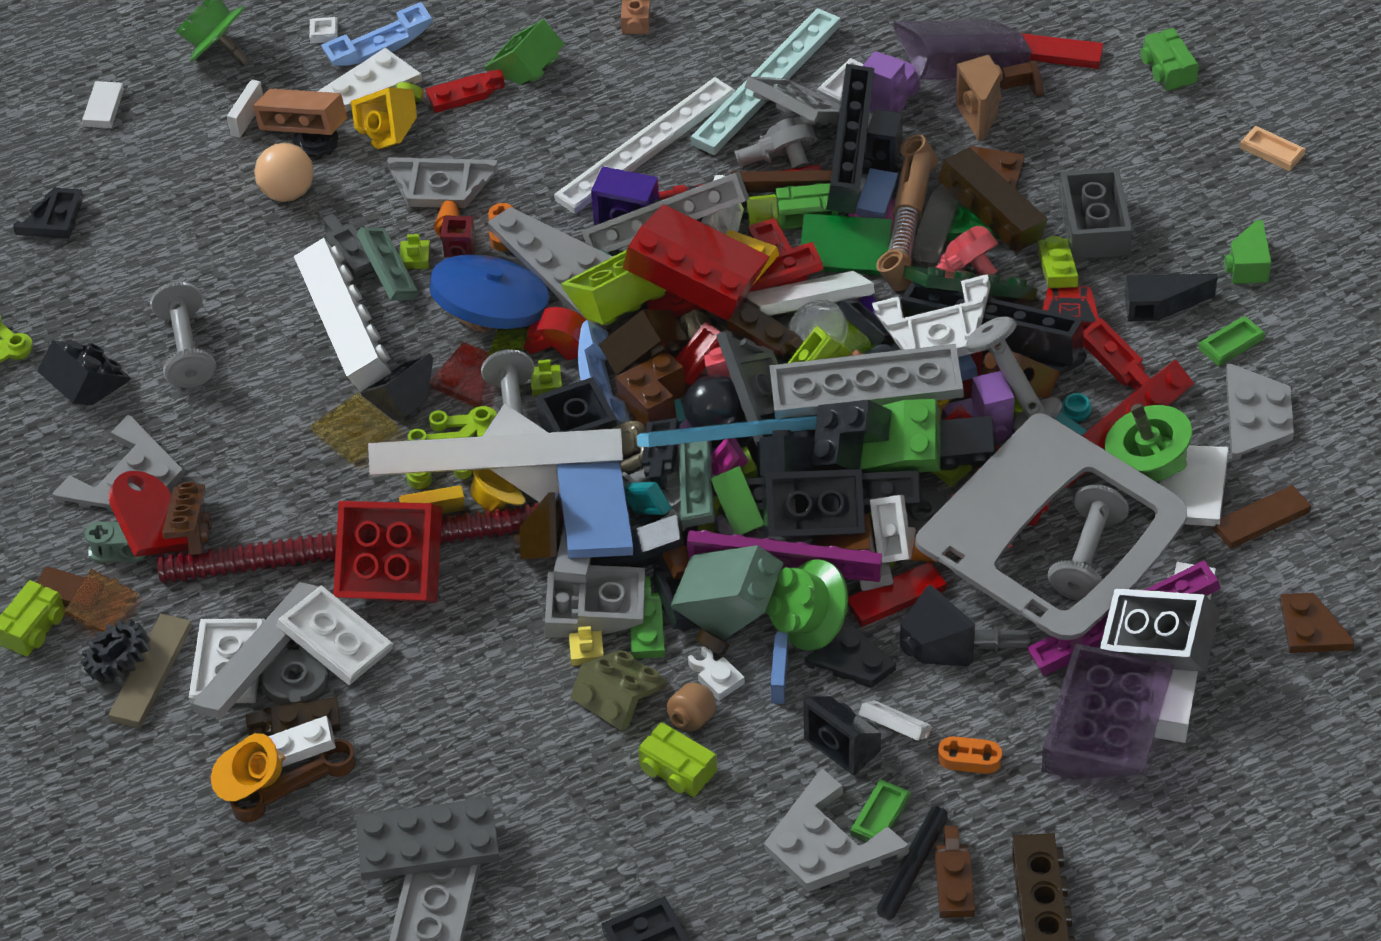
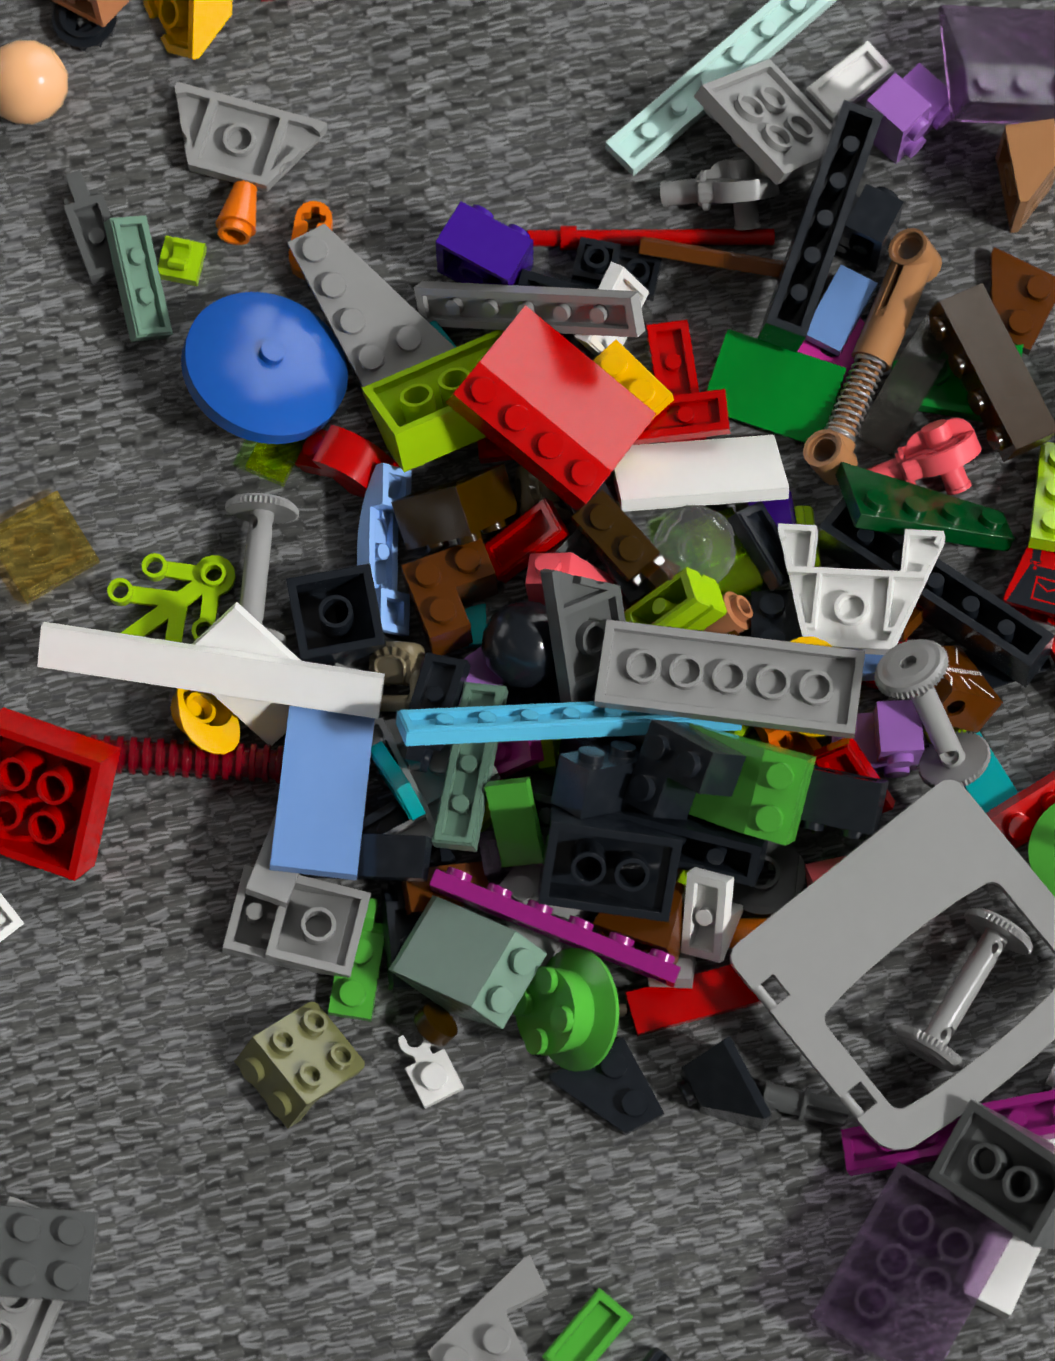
camera: 10 degrees right, 25 degrees up
(343, 315) = (59, 356): white brick -> none
(403, 389) = (116, 499): black slope -> none
(449, 498) = (114, 719): yellow tile -> none
(458, 243) = (241, 263): dark red brick -> none
(462, 375) = (203, 488): clear red wing -> none
(540, 531) = (247, 807): dark brown slope -> none
(545, 378) = (314, 527): lime tile -> none
(585, 645) = (271, 987): light yellow tile -> none
(648, 141) = (542, 133): white tile -> none
(677, 760) = (346, 1199): lime brick -> none
(691, 707) = (384, 1122): medium nougat head -> none
(762, 208) = (674, 300): lime tile -> none
(779, 668) = (511, 1088): medium blue tile -> none
(801, 200) = (731, 303): bright green brick -> none
(840, 733) = (566, 1211): black slope -> none
(895, 720) = (640, 1205): white tile -> none
(970, 755) = (727, 1266): orange beam -> none
(1077, 407) = (1014, 747): teal plate -> none

